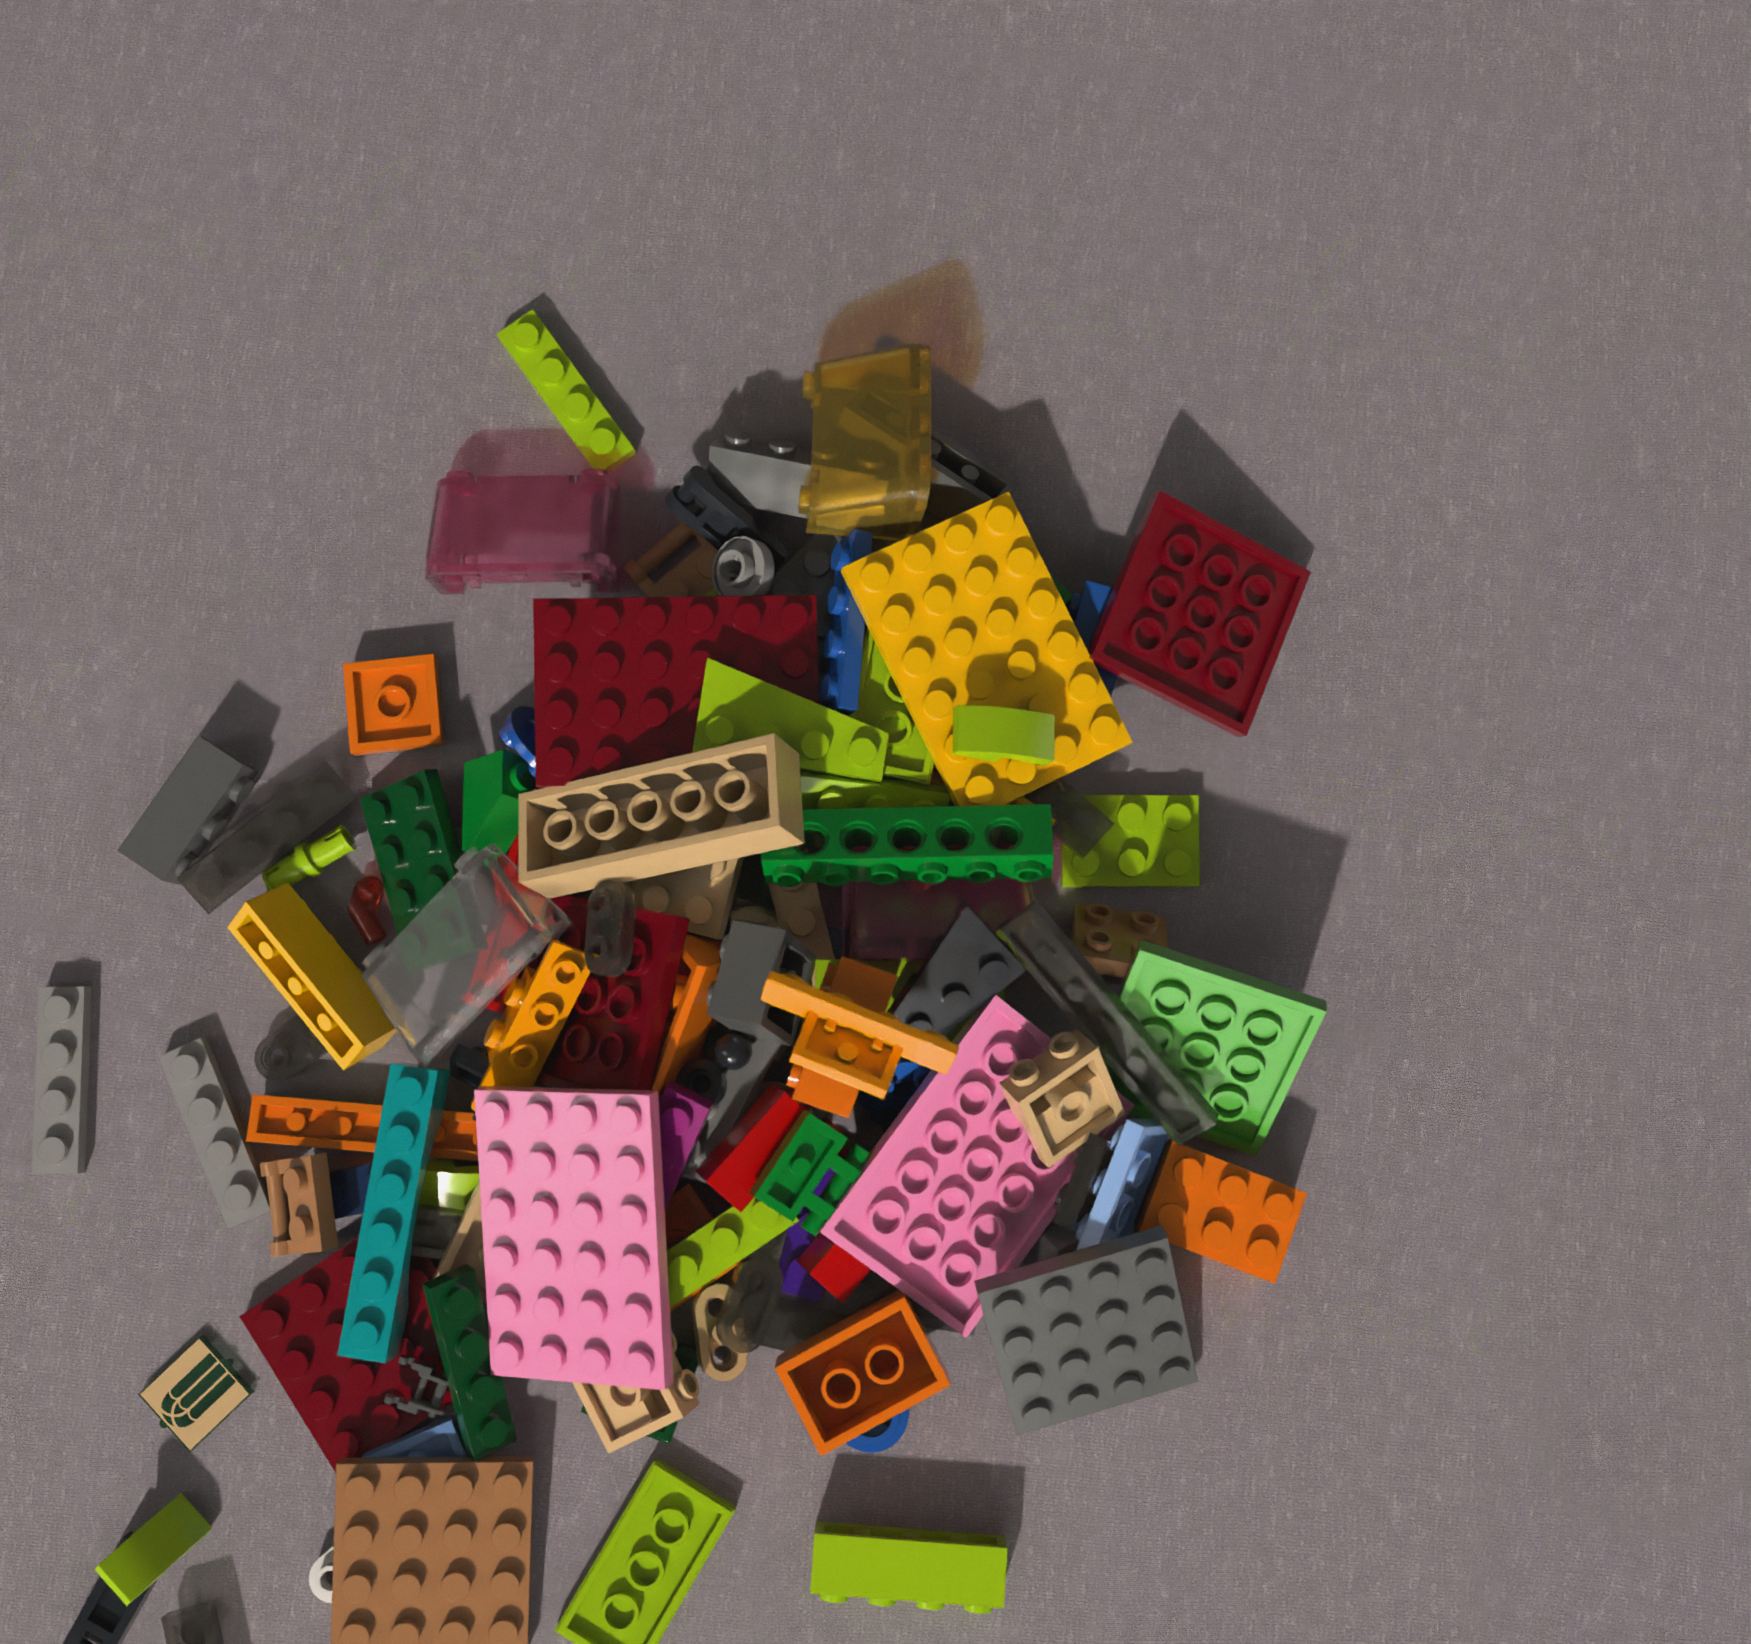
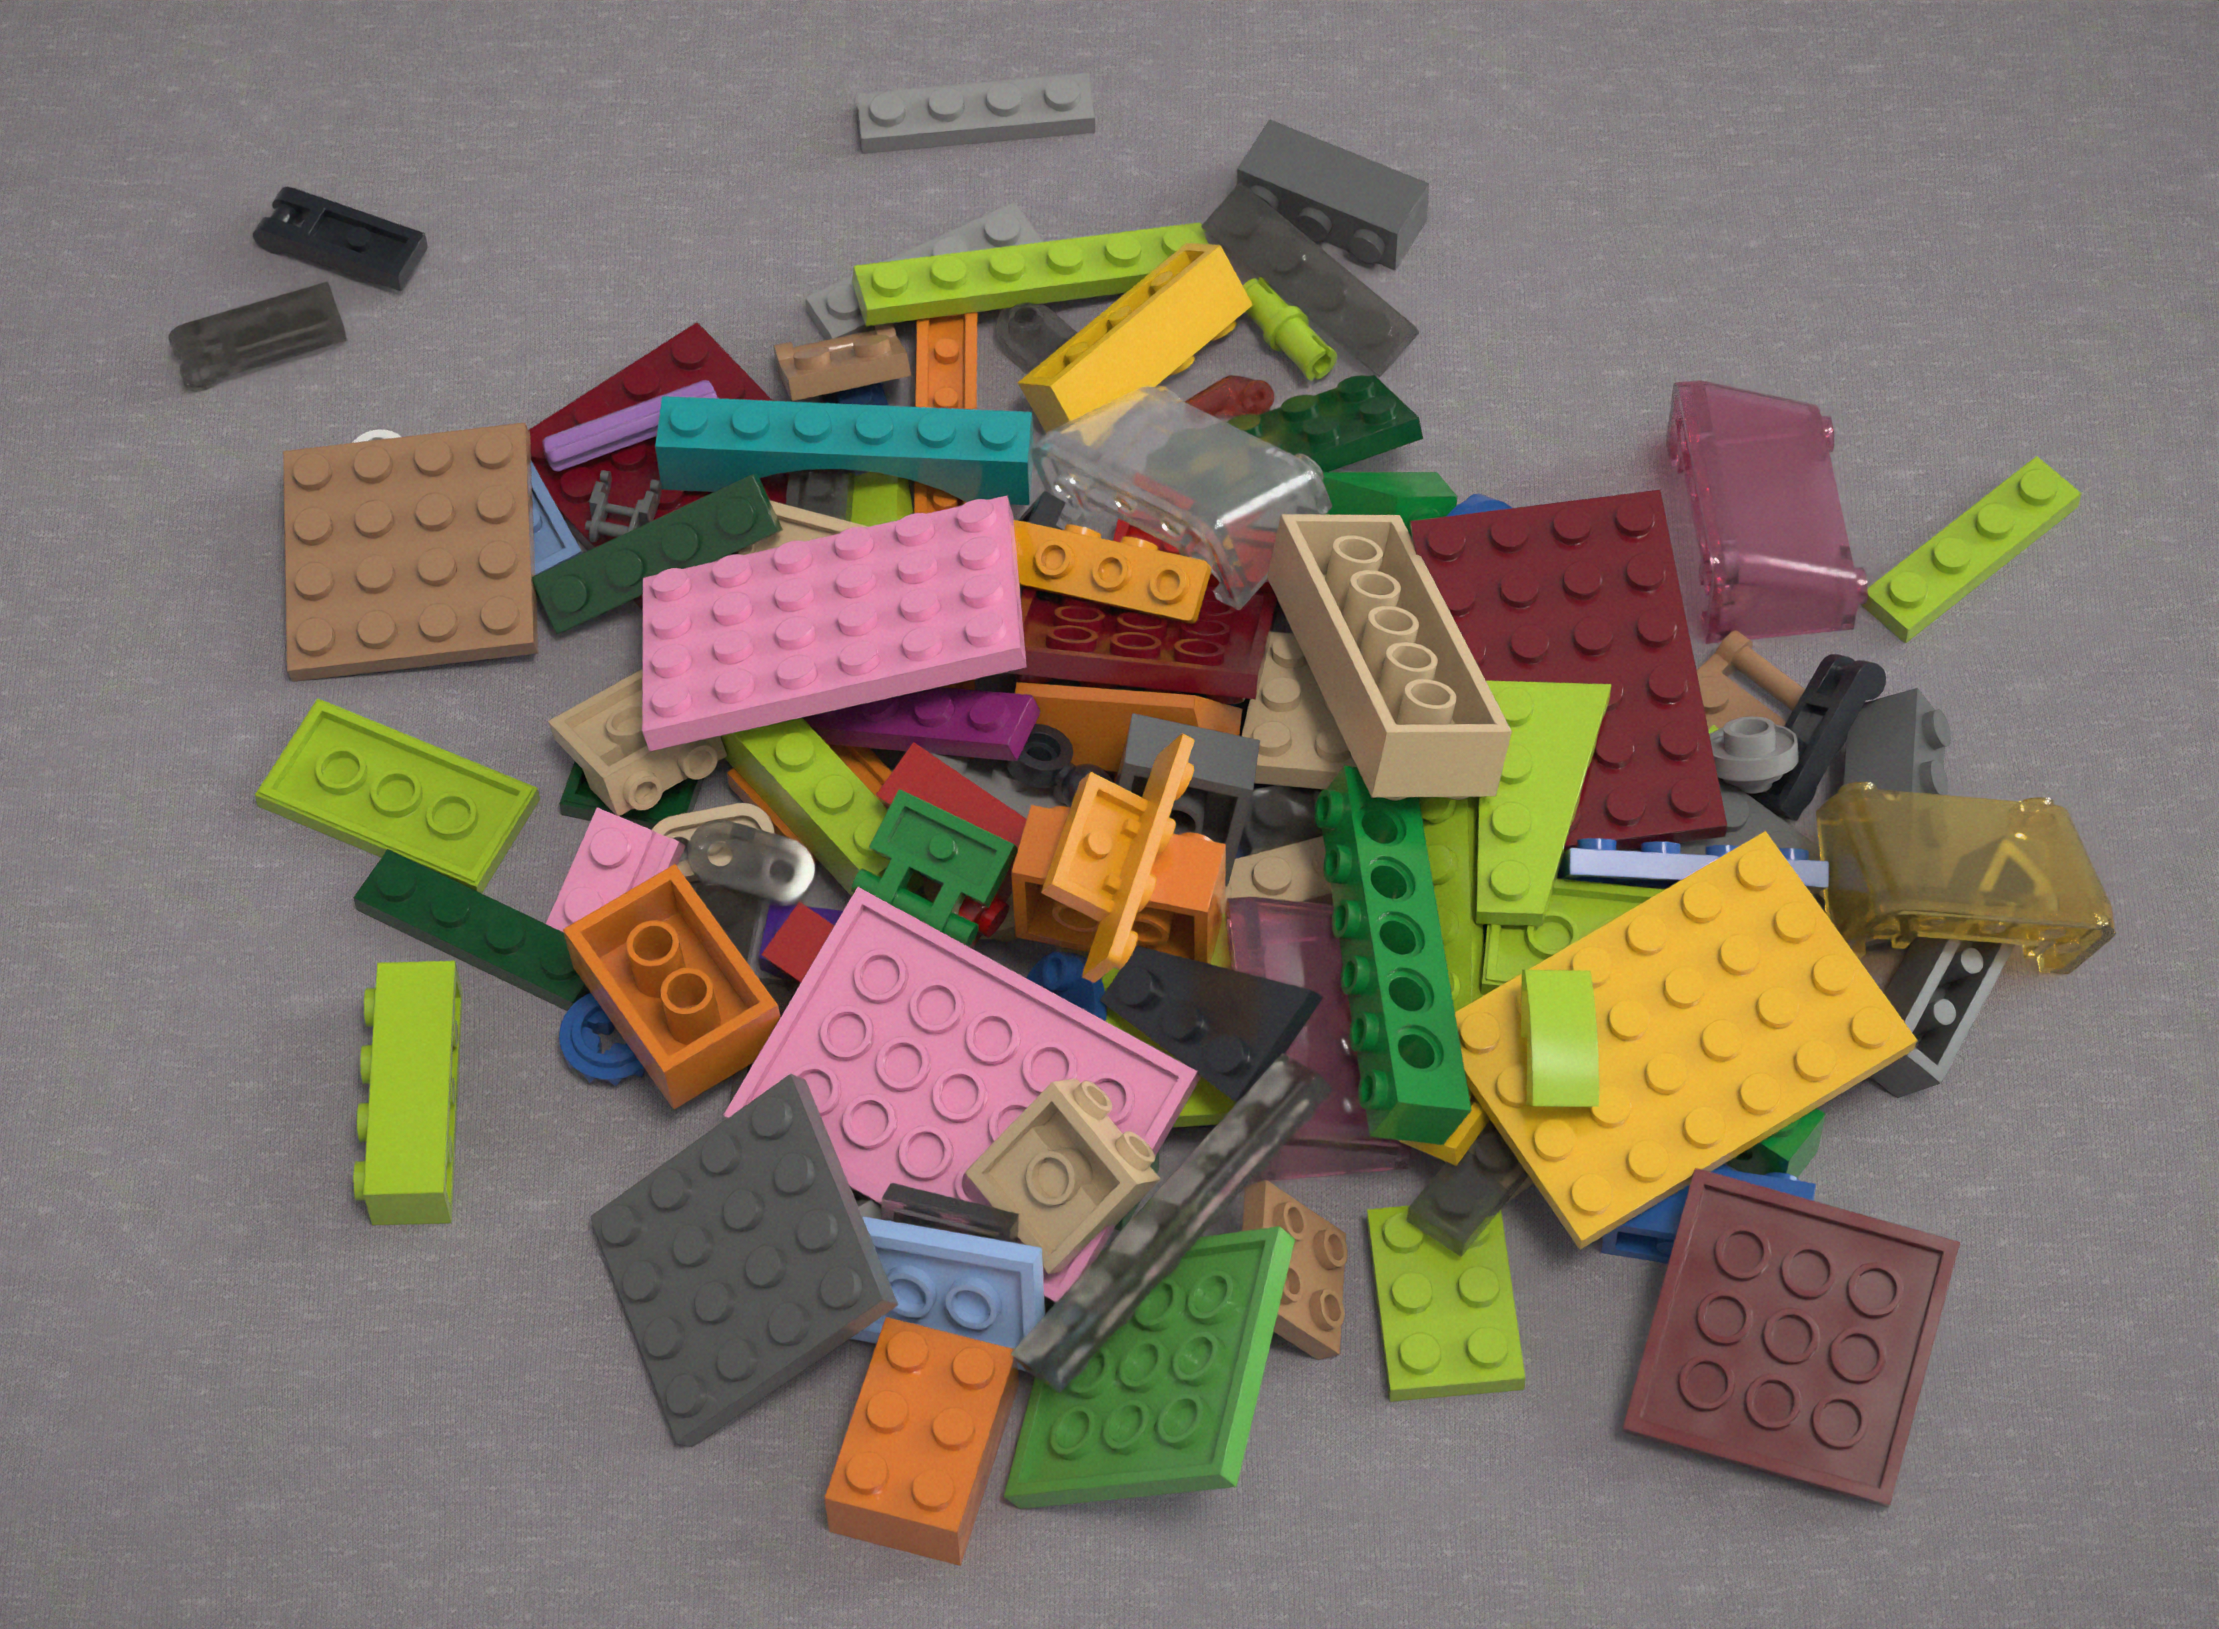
camera: 85 degrees right, 25 degrees down
(153, 1549) = (414, 258): lime slope -> none
(196, 1393) = (597, 295): piece -> none
(234, 1056) = (1015, 274): none -> lime plate
(342, 1378) = (613, 430): none -> medium lavender axle
(393, 704) = (1505, 397): orange plate -> none
(610, 929) = (1213, 624): clear smoke plate -> none
(748, 1406) = (610, 863): none -> bright pink plate
(764, 1515) = (471, 928): none -> dark green plate

